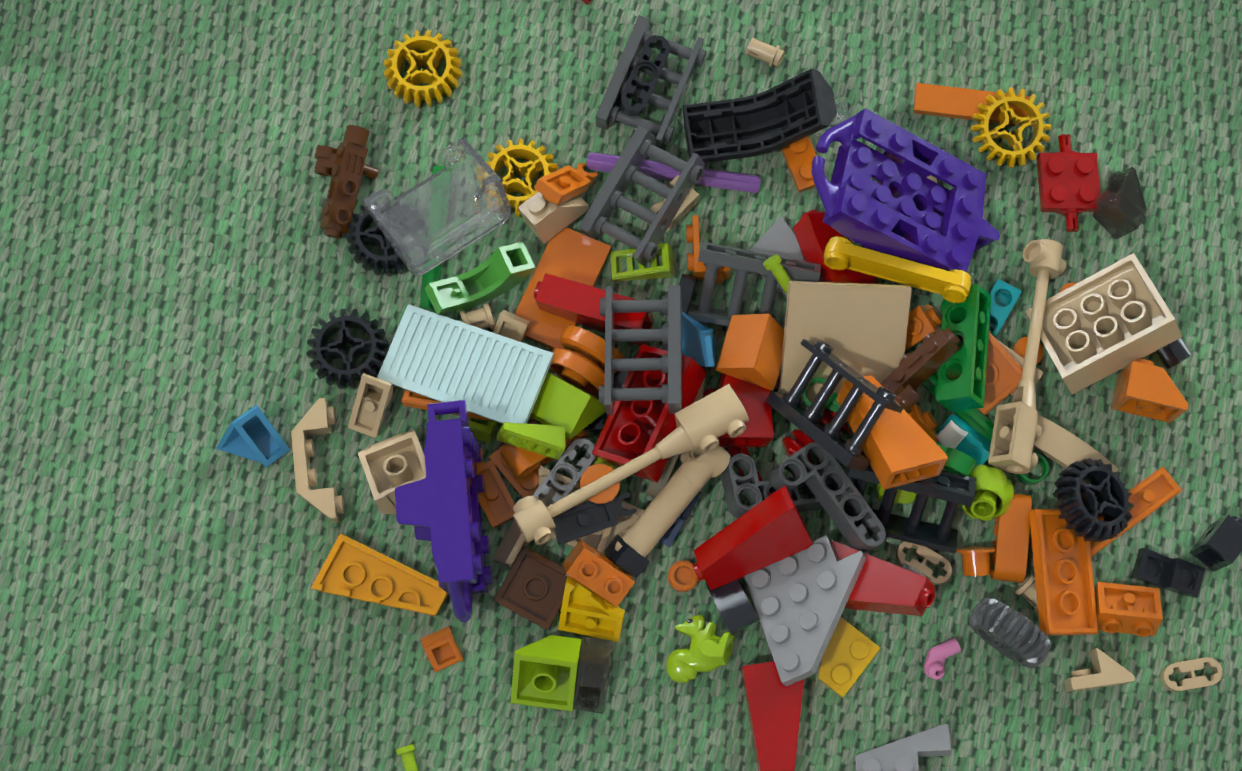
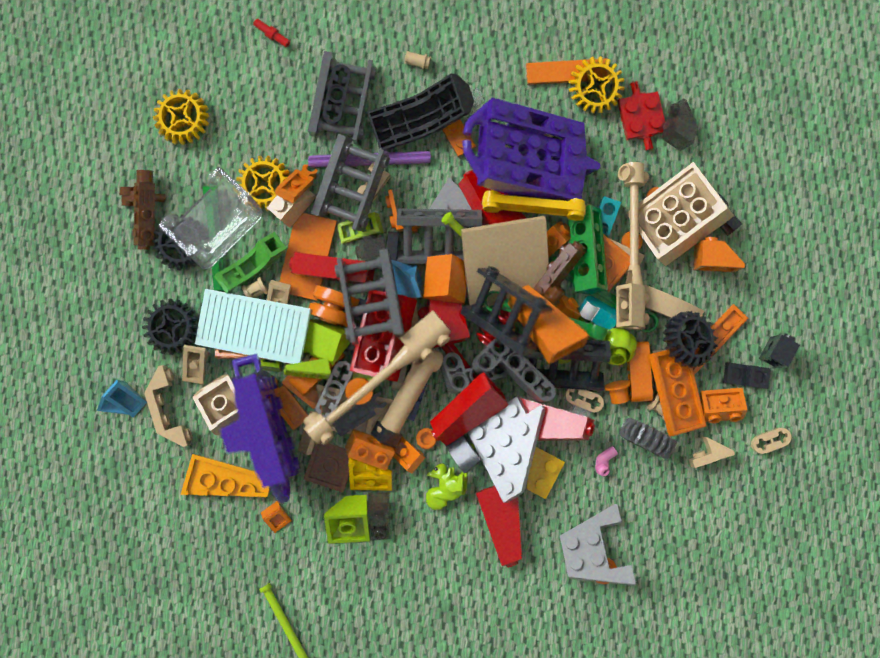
camera: 10 degrees left, 10 degrees up
(651, 287) = (369, 248): none -> clear smoke brick
(652, 592) = (408, 455): none -> orange slope

